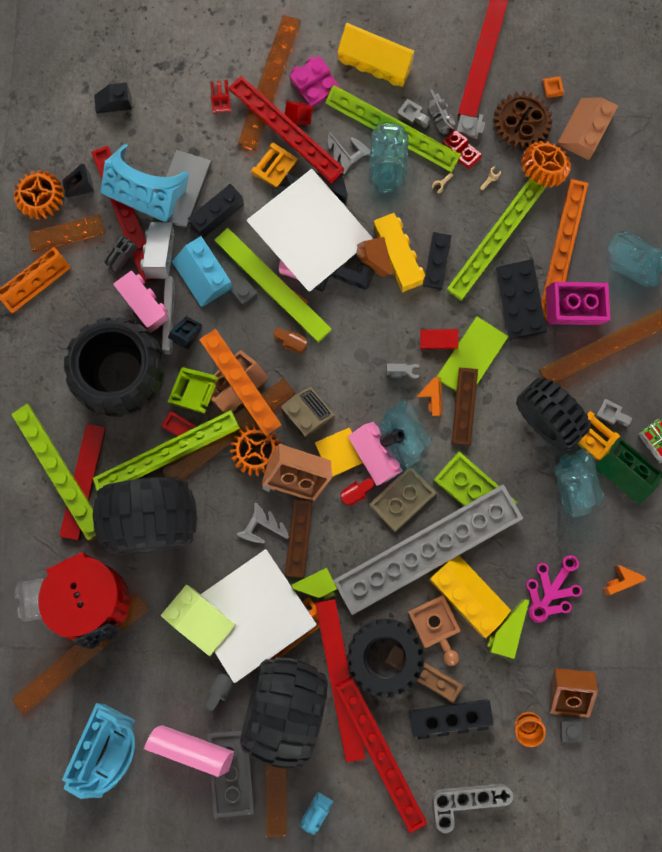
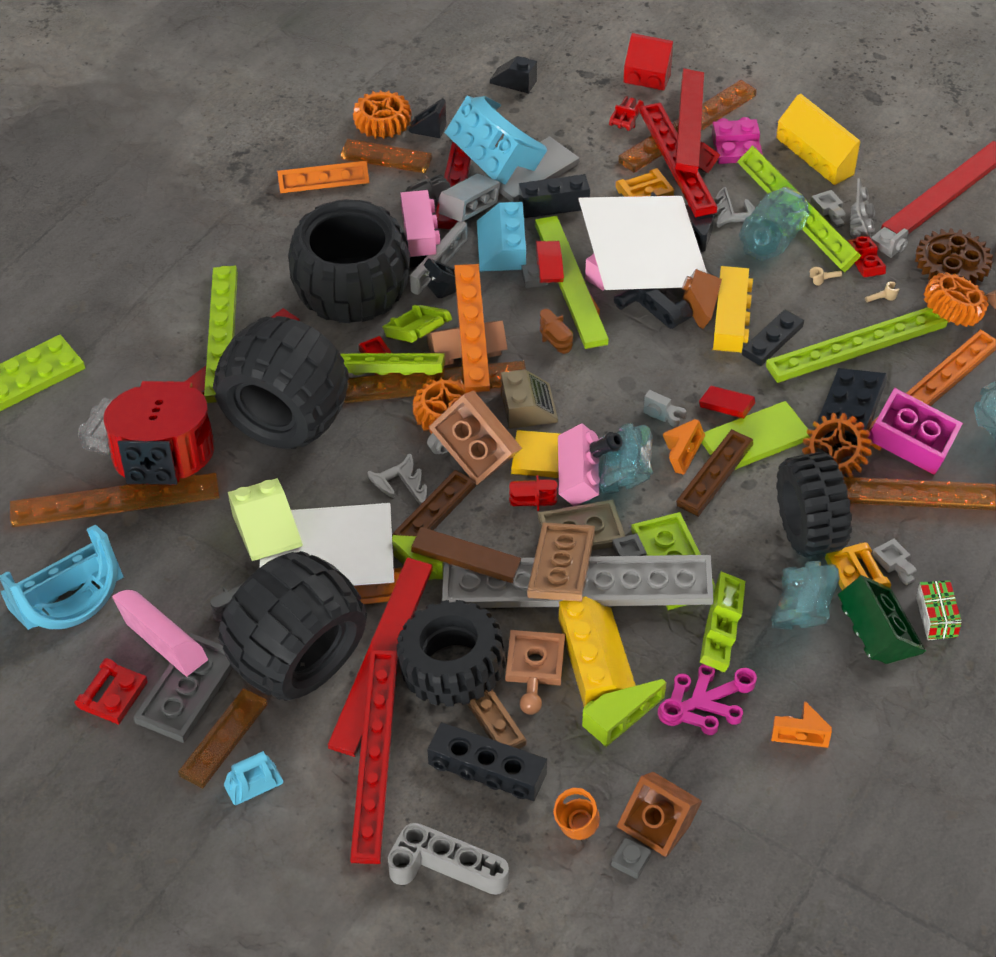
camera: 30 degrees right, 30 degrees down
(190, 802) = (118, 696): none -> red plate
(209, 37) = (648, 61): none -> red slope
(252, 280) = (549, 261): none -> red slope
(274, 85) = (689, 121): none -> red tile
(349, 575) = (466, 554): none -> reddish brown tile
(413, 545) = (561, 562): none -> medium nougat tile
(444, 501) = (628, 546): none -> dark grey plate
(533, 526) = (722, 622): none -> lime slope
(543, 343) = (839, 427): none -> orange gear

